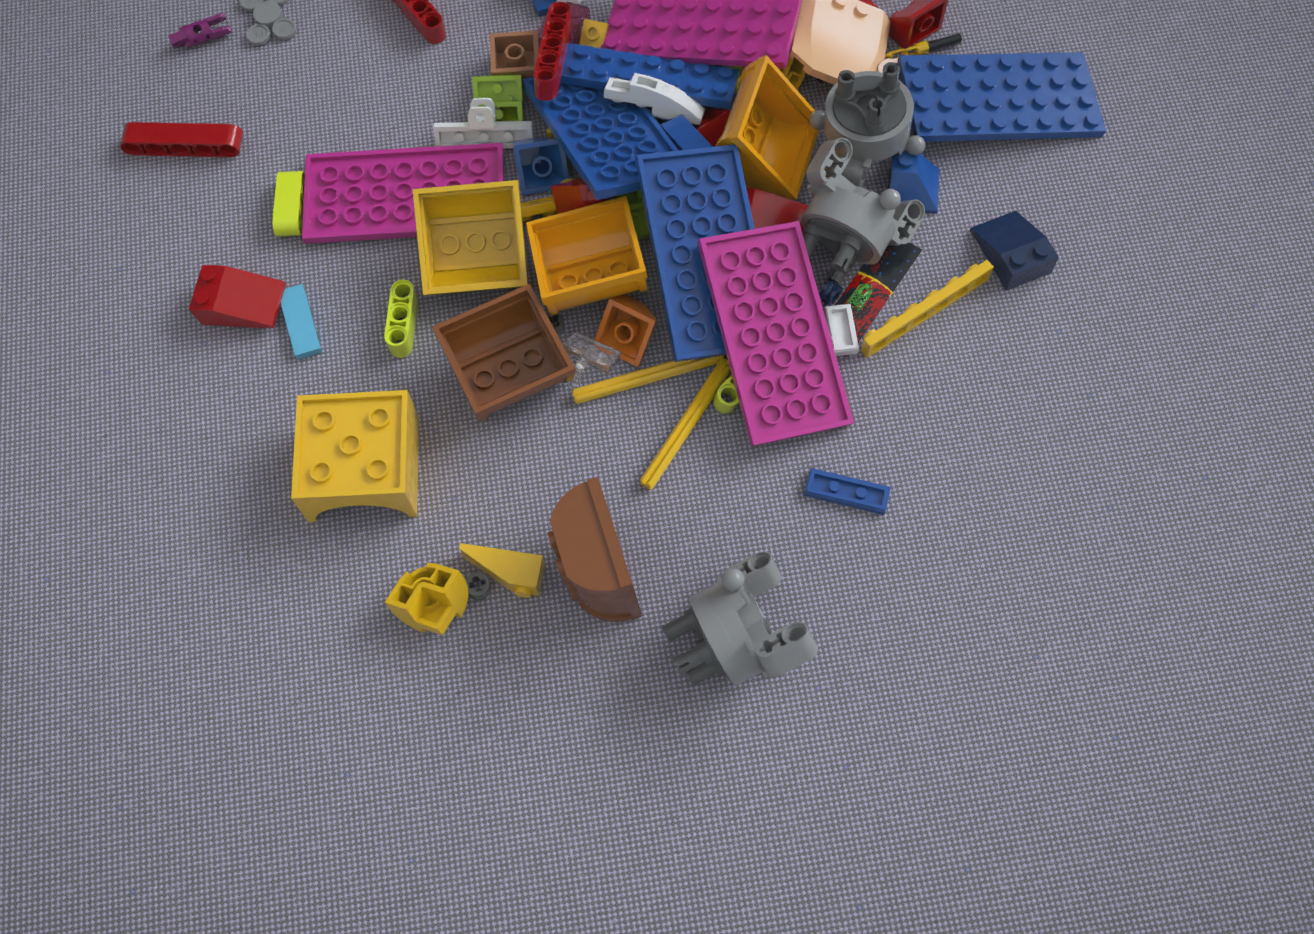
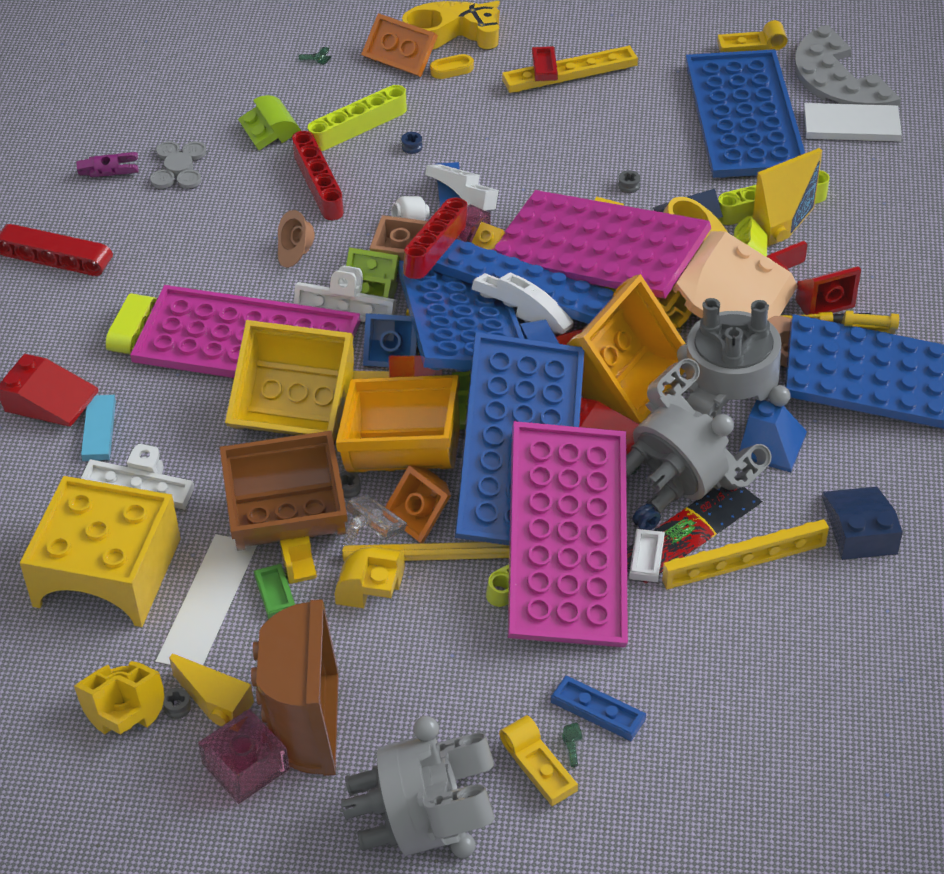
camera: 15 degrees right, 20 degrees down
(359, 369) = (141, 474): none -> white plate
(405, 328) = (198, 444): neon yellow beam -> none
(411, 74) = (294, 238): none -> nougat piece
(466, 478) = (207, 601): none -> white sticker
(510, 18) = (411, 208): none -> white head
(525, 450) = (273, 589): none -> bright green tile
(536, 415) = (298, 559): none -> yellow panel
(560, 625) = (244, 755): none -> clear pink brick
(606, 415) = (369, 572): none -> yellow brick
(685, 424) = (441, 610): yellow axle -> none
(813, 558) = (537, 761): none -> yellow plate
(832, 525) = (570, 735): none -> clear green hand
(976, 46) = (873, 322): none -> yellow plate

